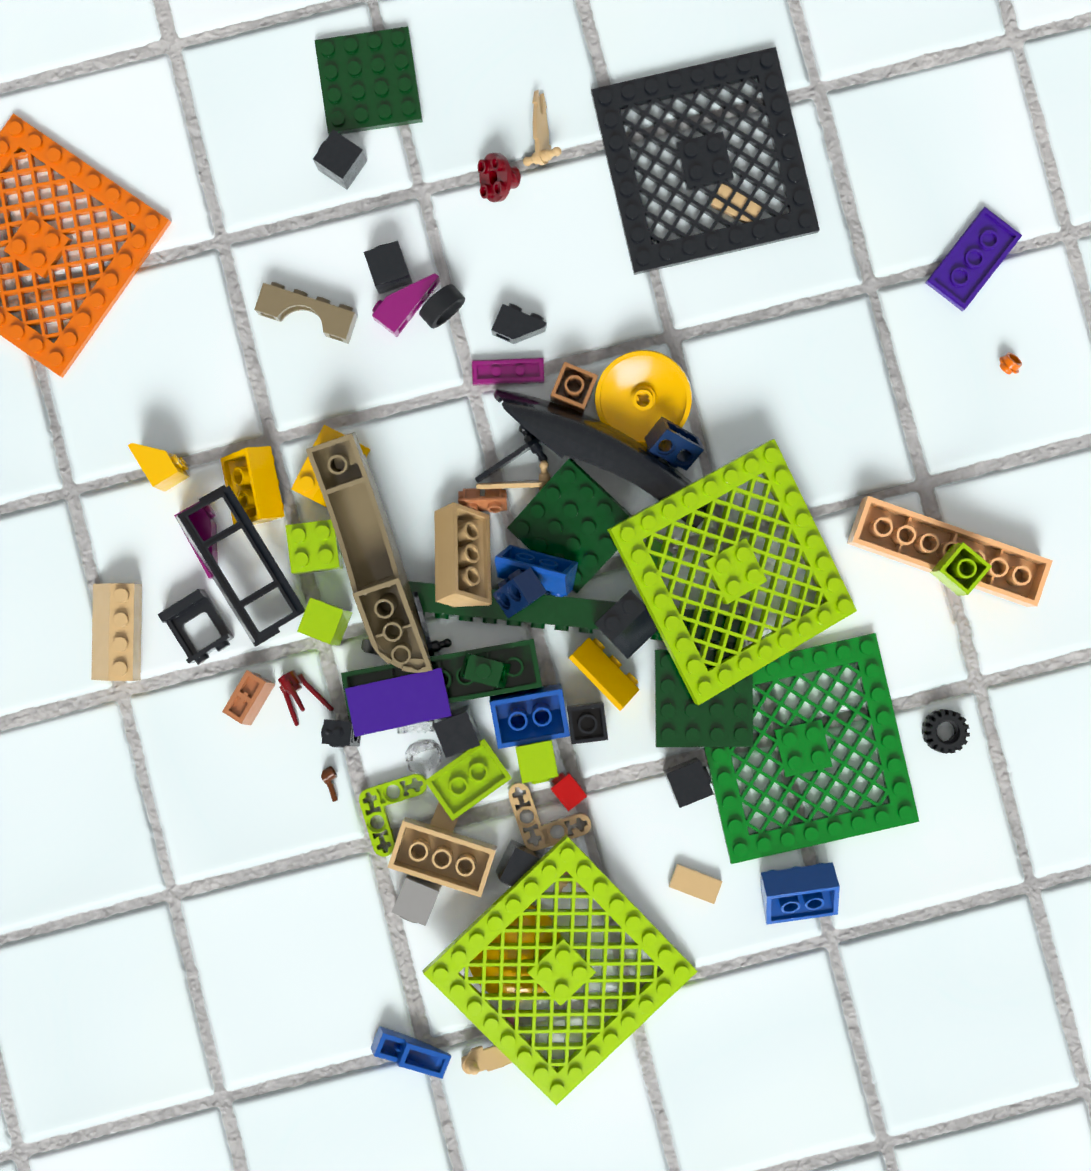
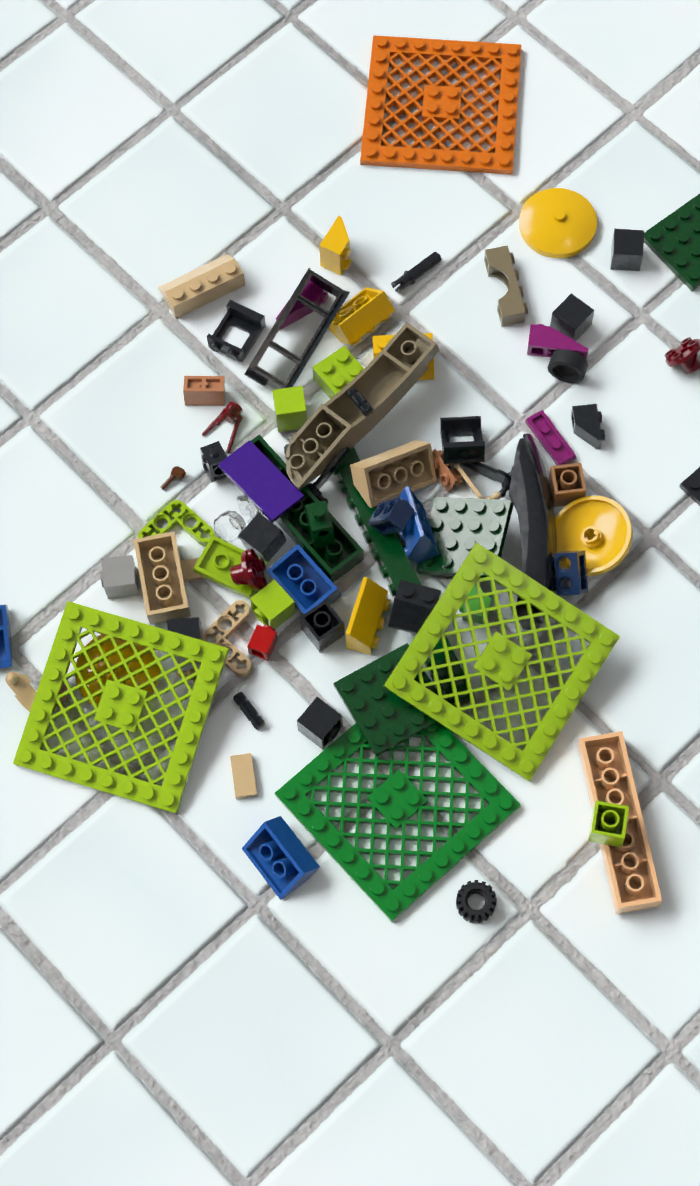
camera: 65 degrees right, 20 degrees down
(234, 395) = (418, 270): none -> black axle
(260, 210) = (558, 223): none -> yellow dish
(372, 551) = (360, 401): none -> black axle
(480, 476) = (462, 451): none -> black window
(492, 766) = (250, 571): none -> dark red plate
(630, 842) = (249, 710): none -> black axle

